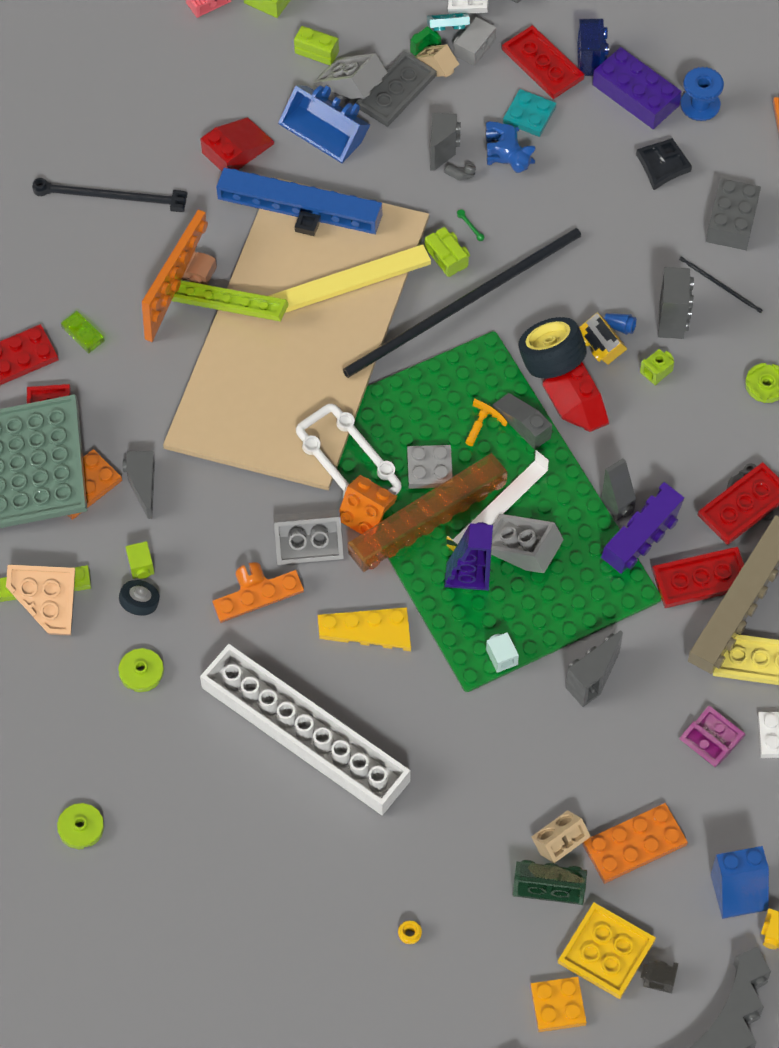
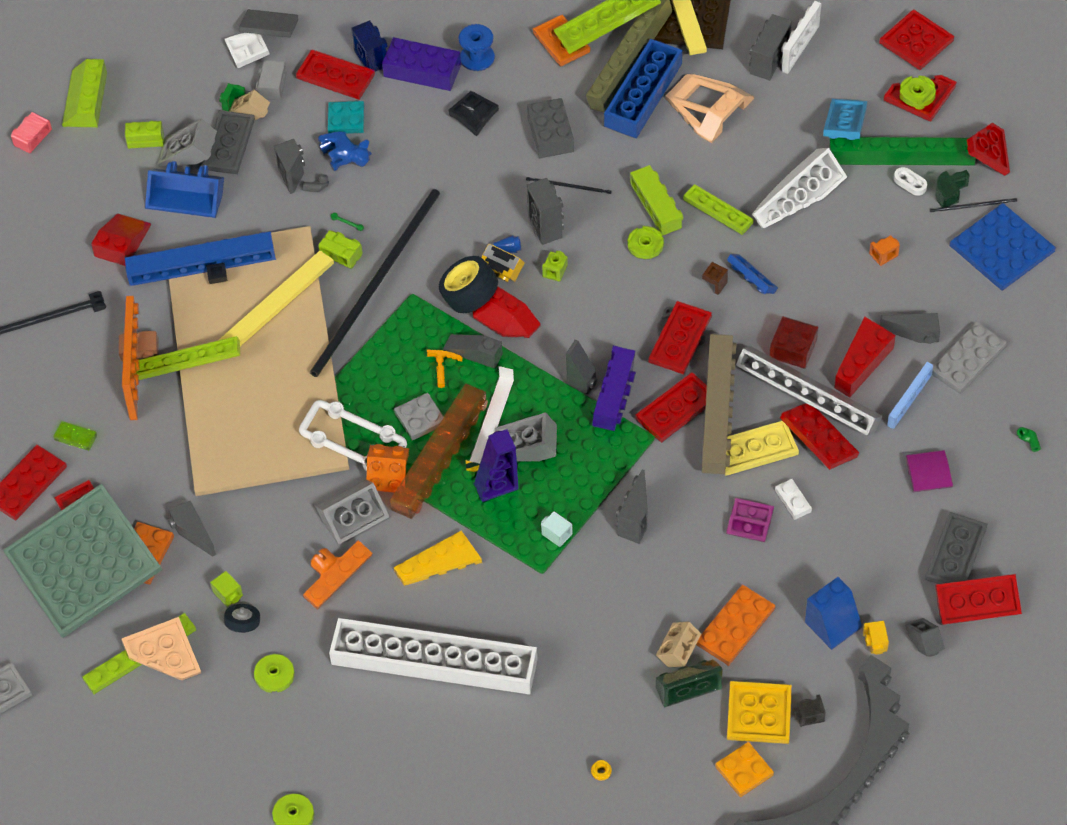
camera: 25 degrees left, 5 degrees down
(456, 20) = (237, 75): plate -> none

